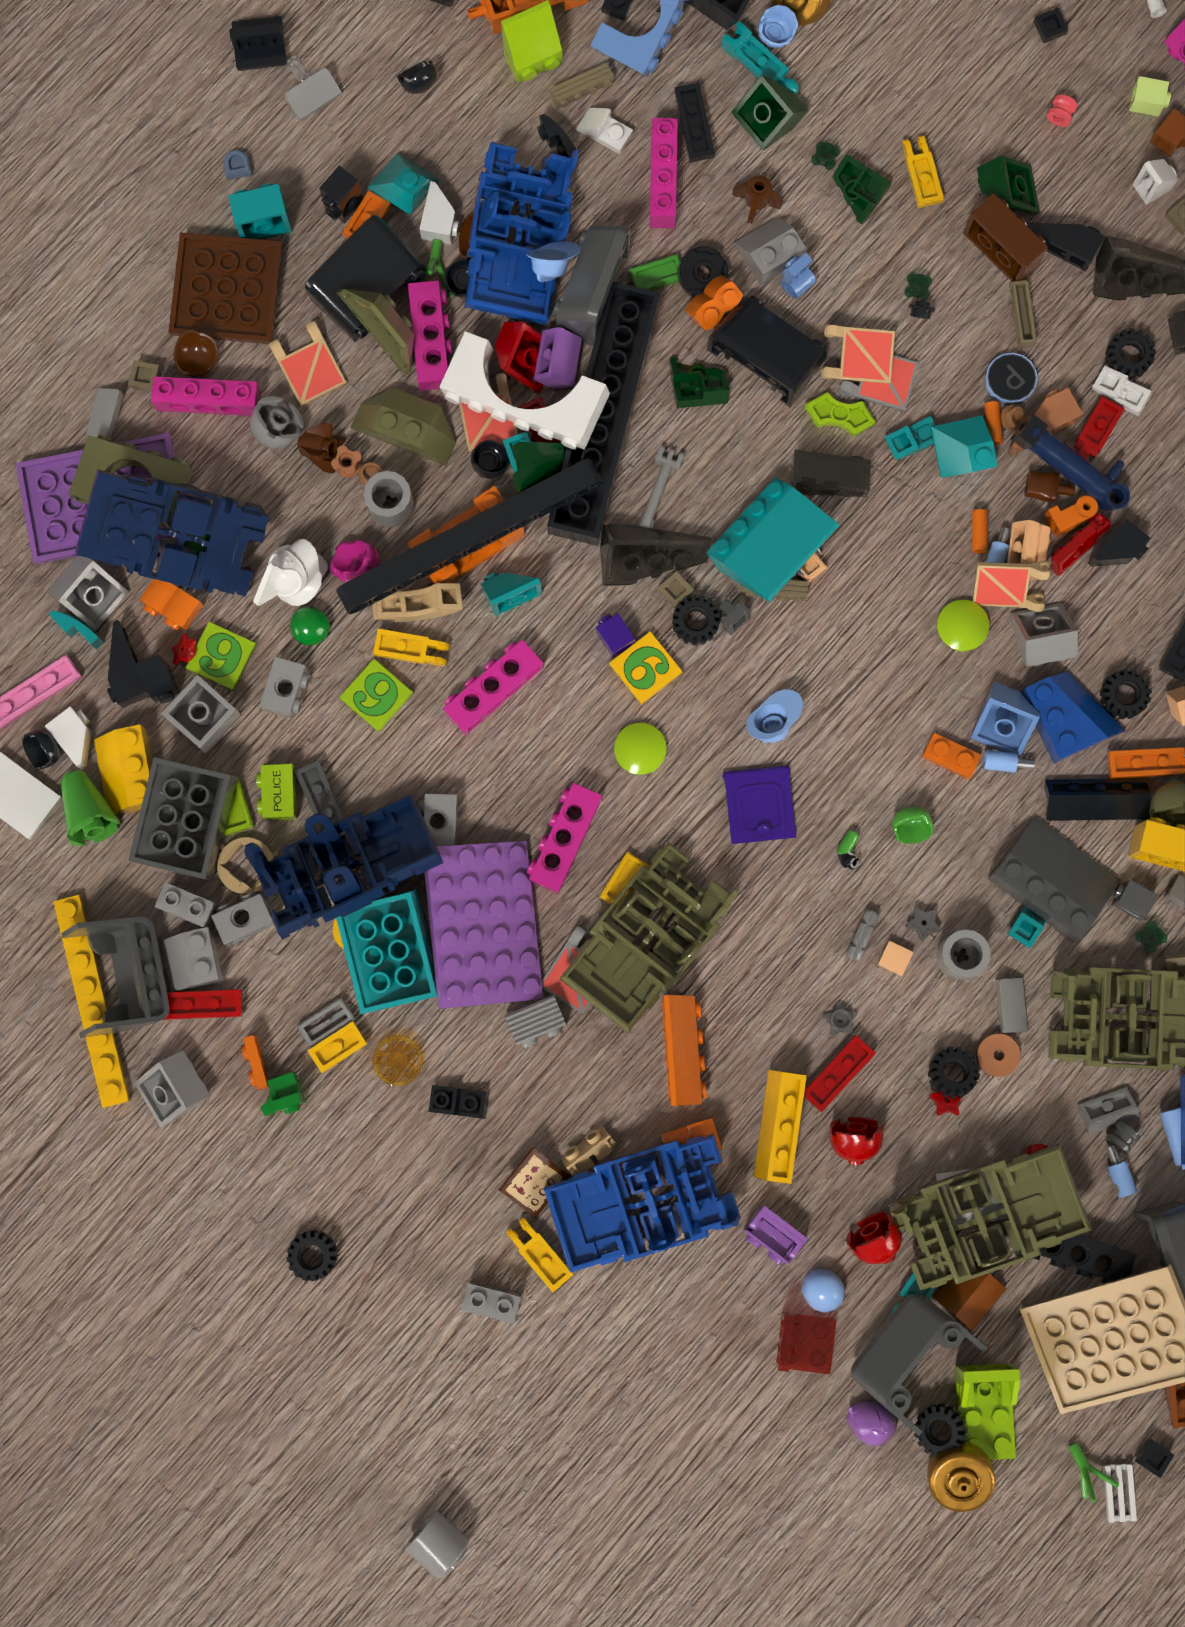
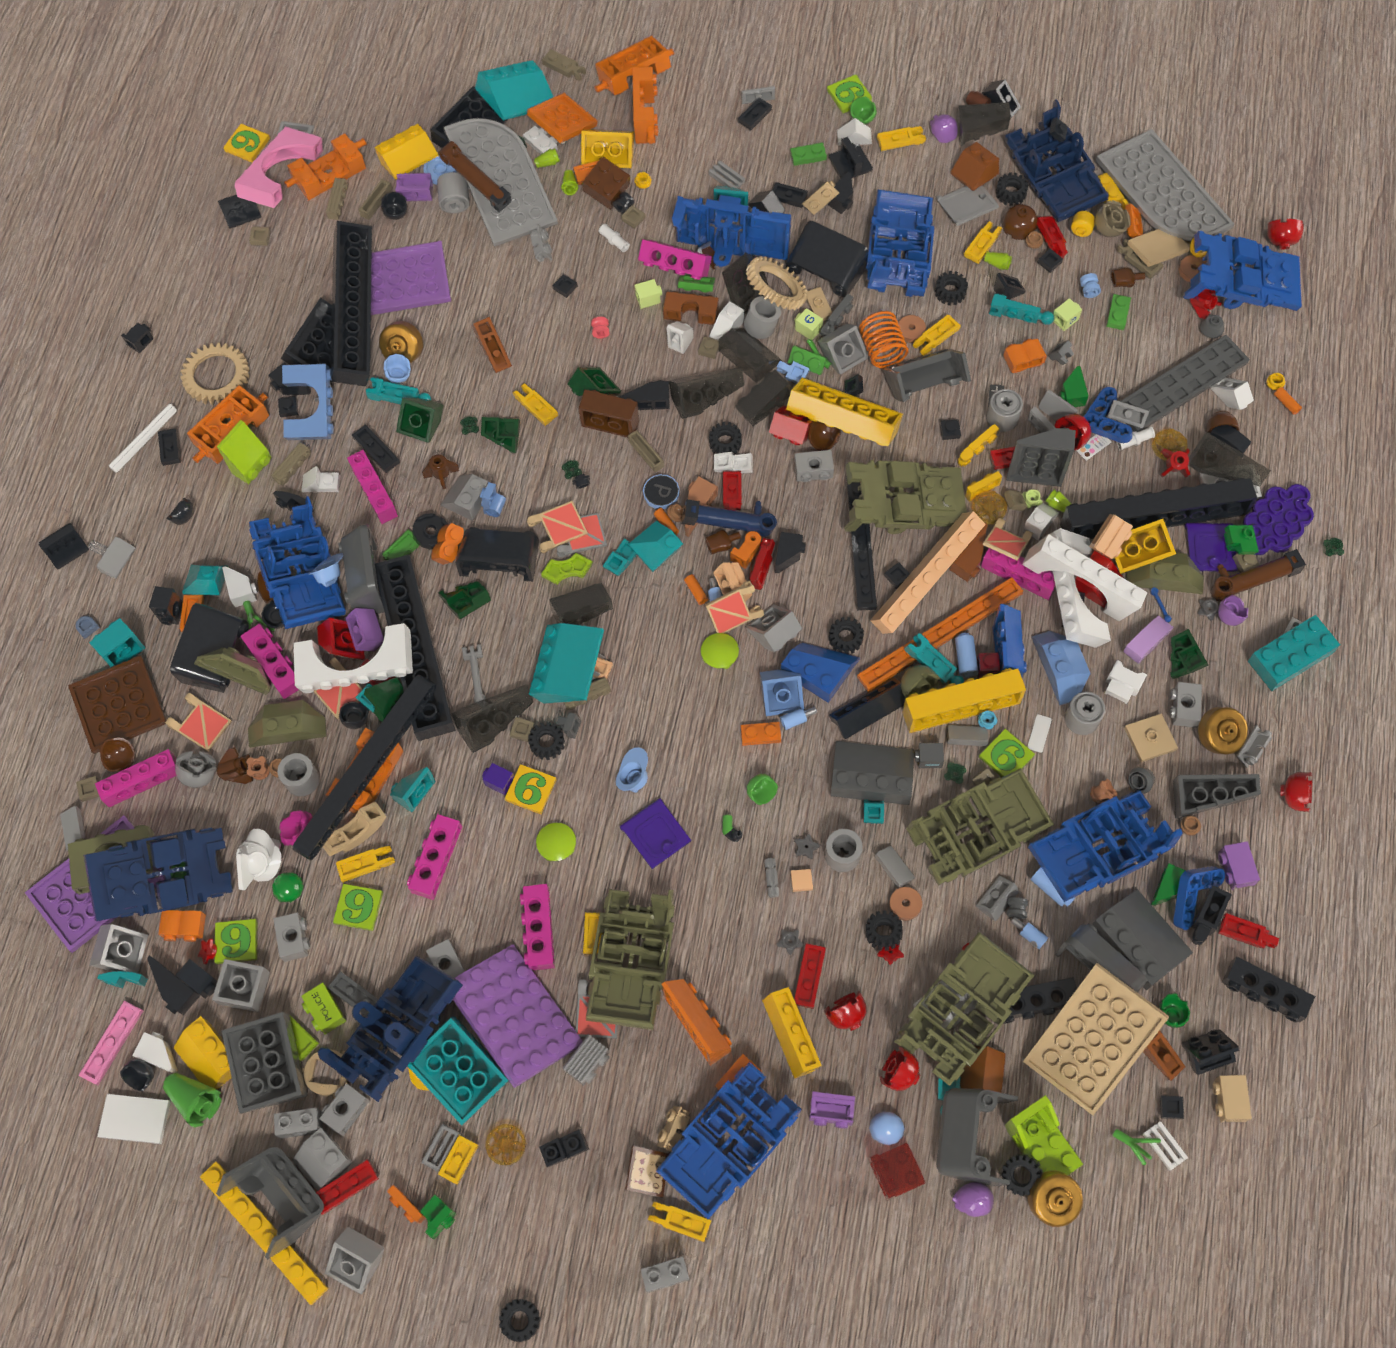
camera: 30 degrees left, 15 degrees down
(912, 59) = (491, 344): none -> dark orange slope

